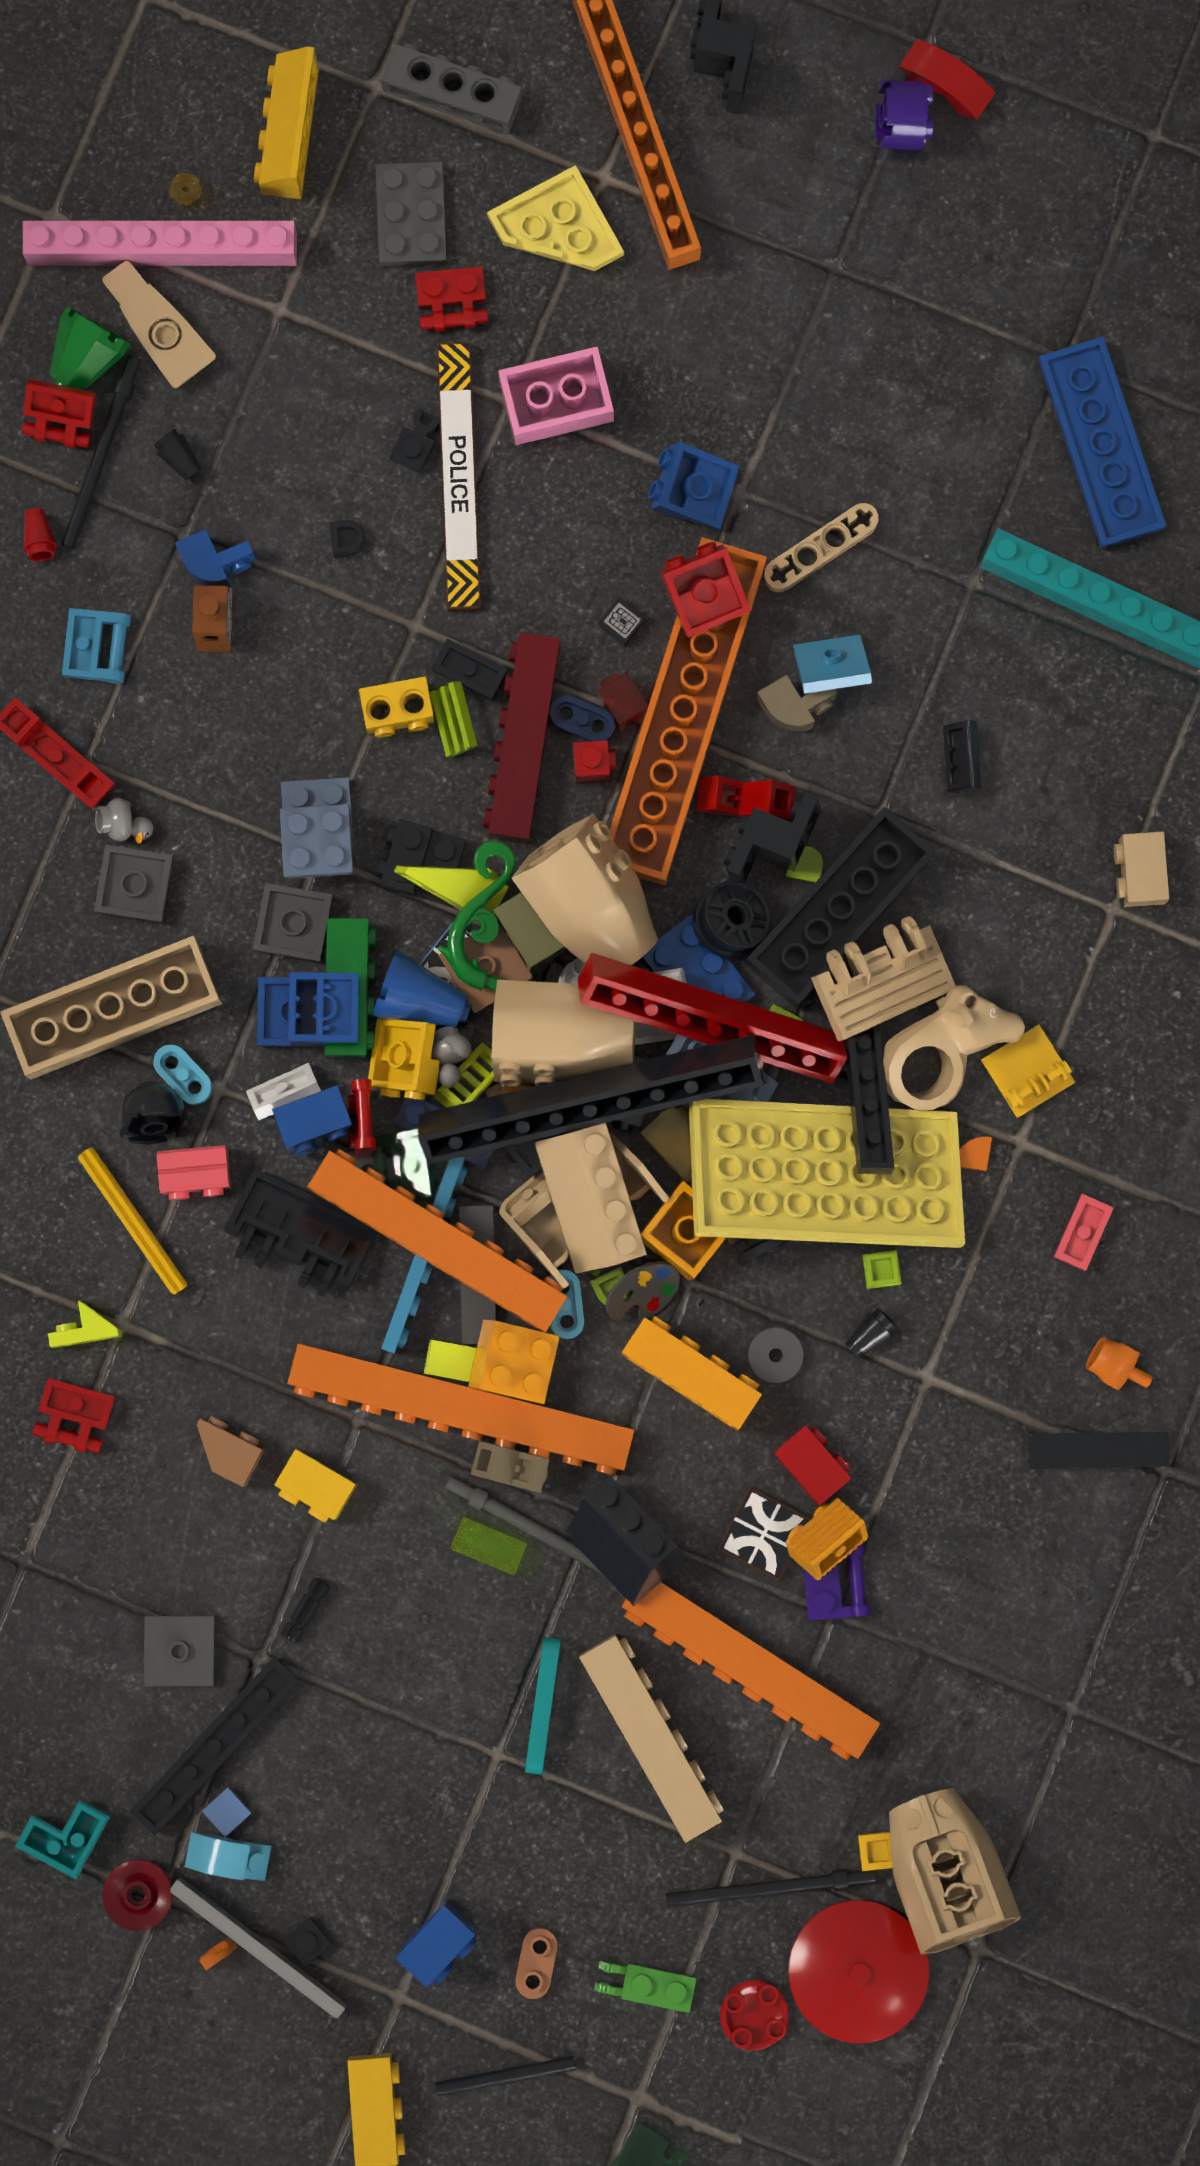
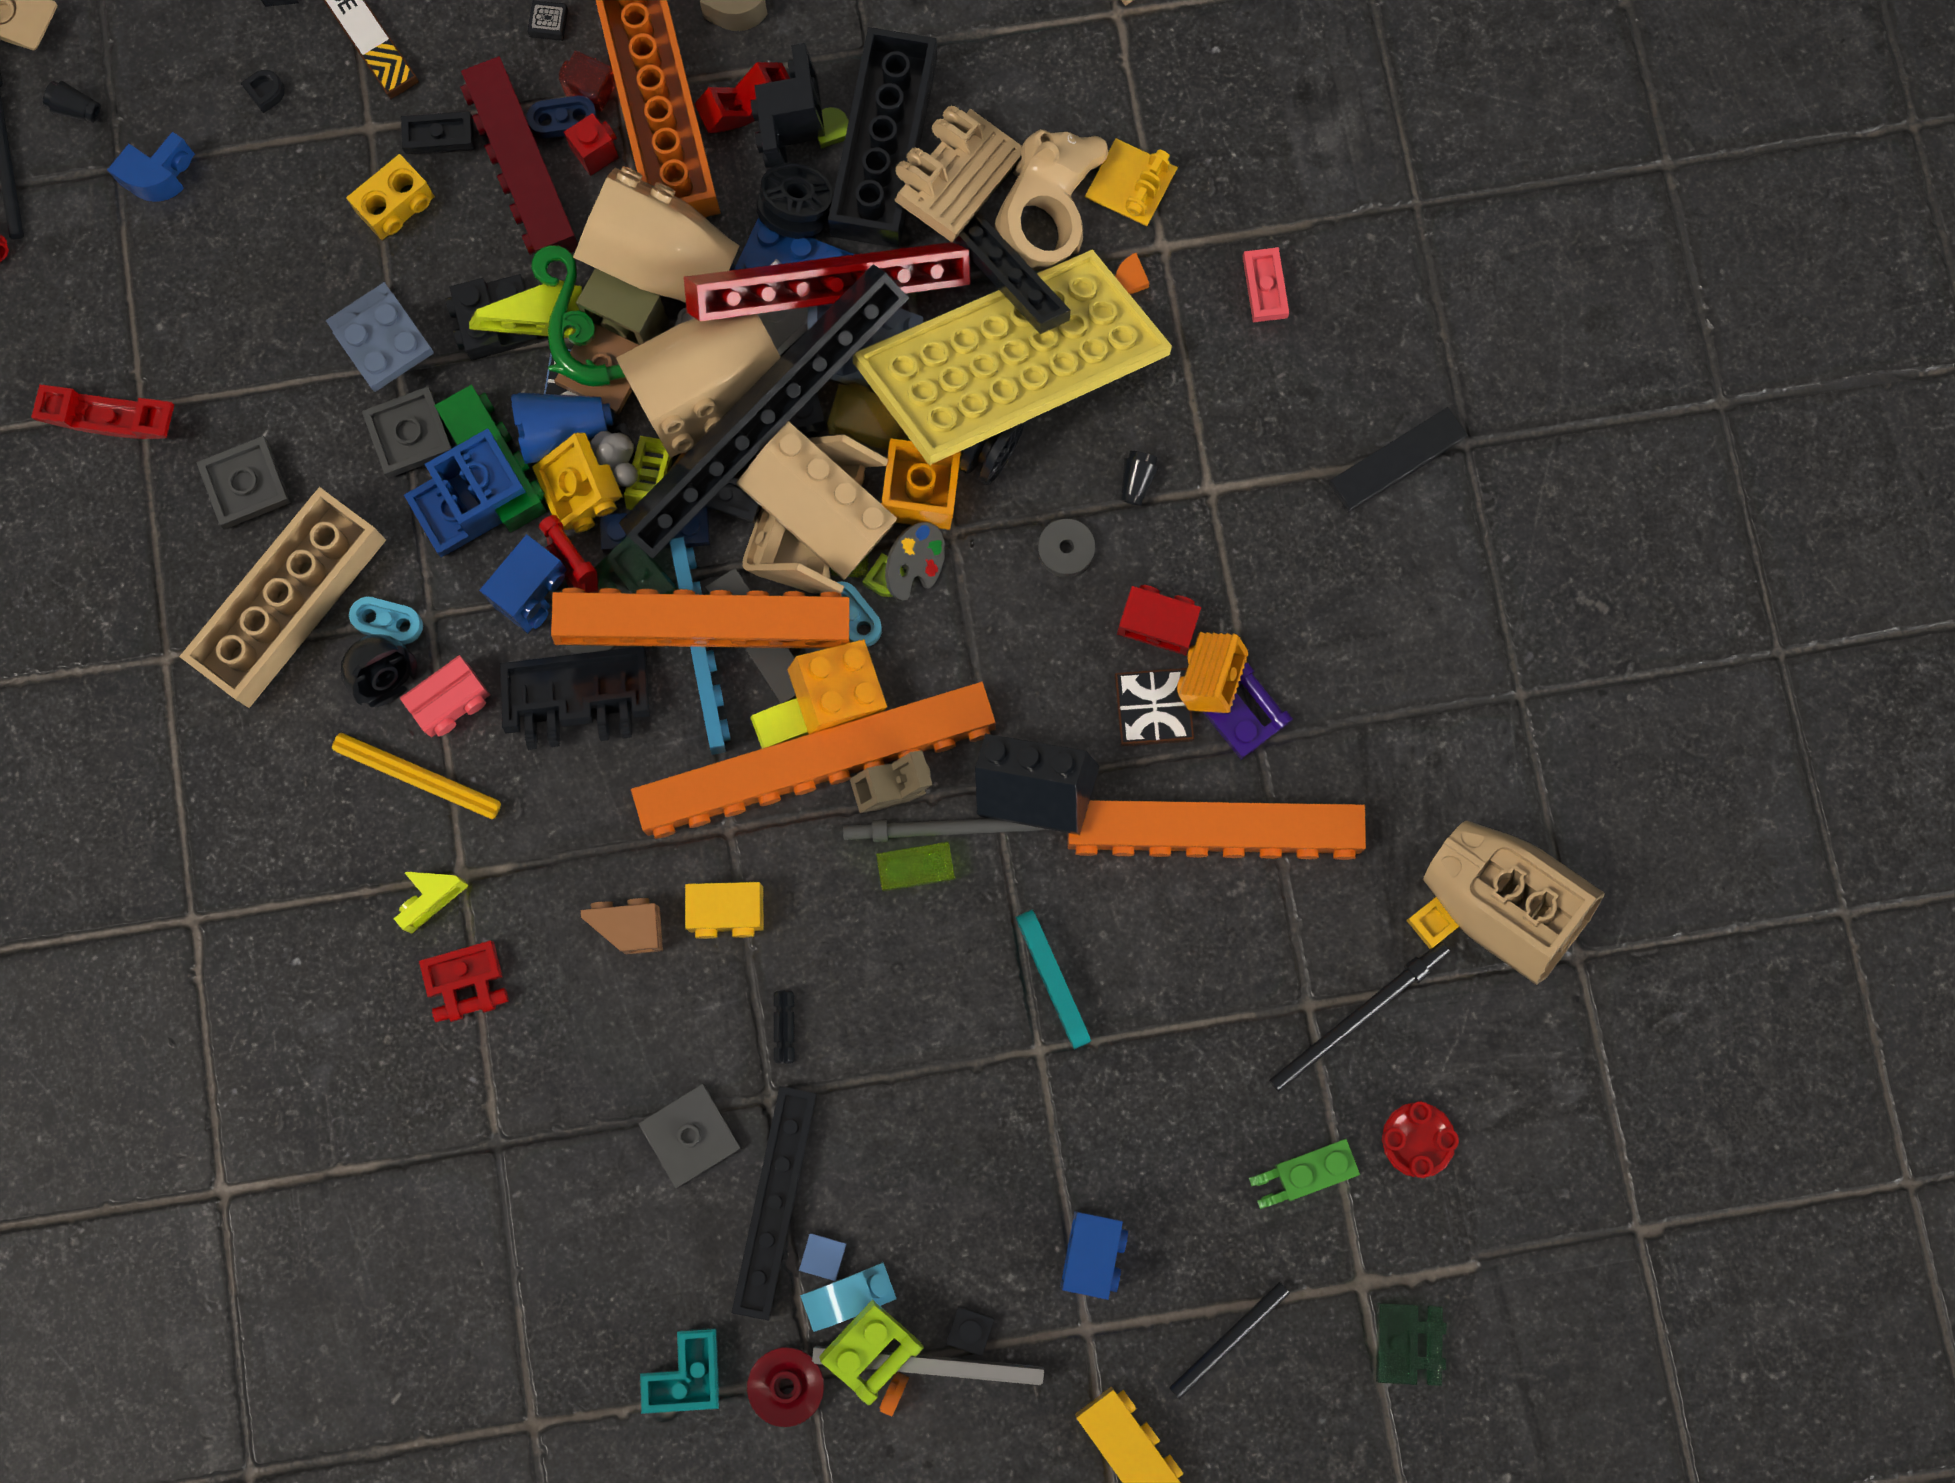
camera: 30 degrees left, 5 degrees down
(84, 645) = (79, 307): dark azure plate -> none
(117, 822) = (196, 438): light grey animal -> none
(212, 618) = (177, 207): dark orange torso -> none
(215, 1901) = (862, 1344): none -> lime plate
(282, 1090) = (470, 597): white plate -> none
(449, 721) = (447, 184): lime tile -> none
(536, 1963) = (1192, 1217): nougat plate -> none
(650, 1737) = (1169, 943): tan brick -> none
(691, 1373) = (1002, 601): light orange brick -> none
(858, 1971) = (1485, 1041): red dish -> none
(881, 1269) = (1112, 420): lime tile -> none
(1116, 1363) = (1365, 377): orange piece -> none

